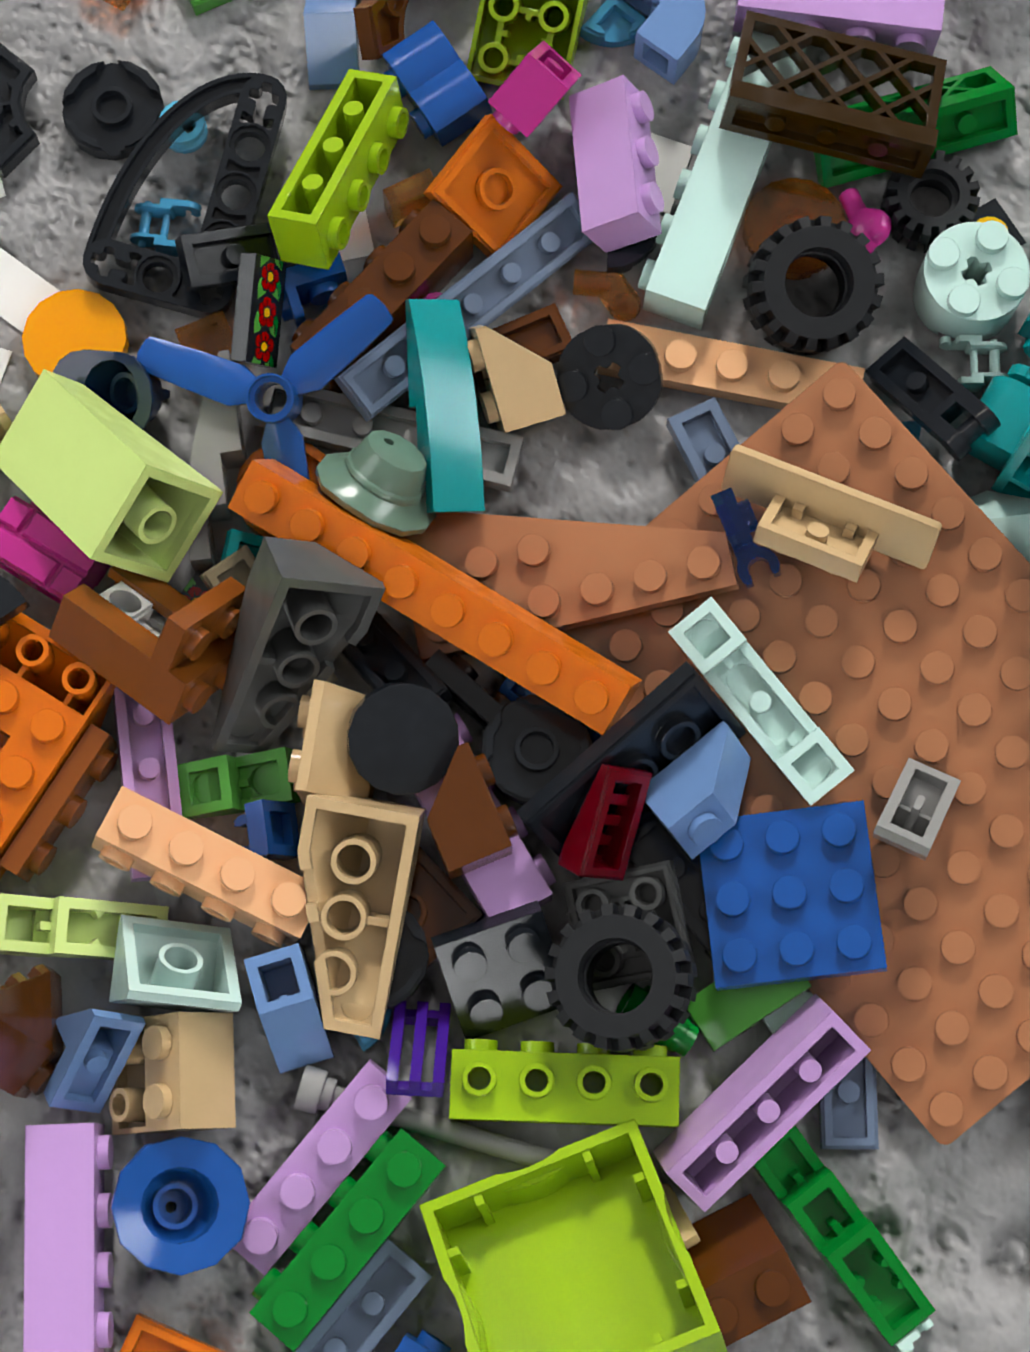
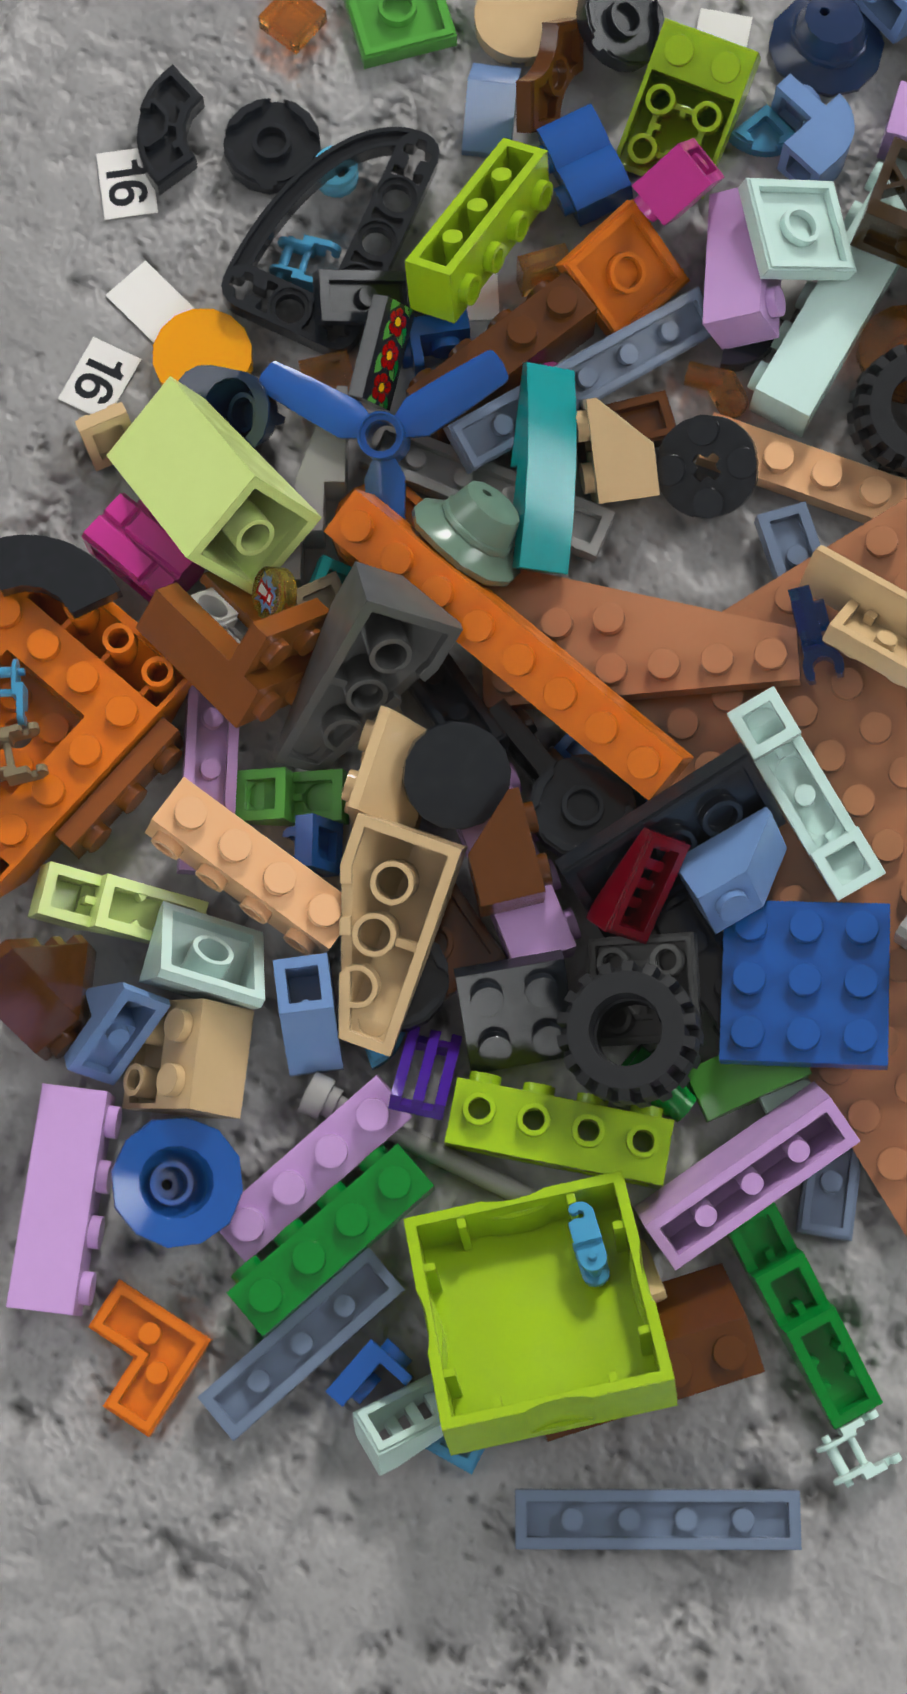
camera: 10 degrees right, 0 degrees up
(186, 576) = (273, 591): none -> clear yellow tile
(612, 1201) = (588, 1245): none -> dark azure piece
(662, 121) = (796, 229): none -> light aqua tile

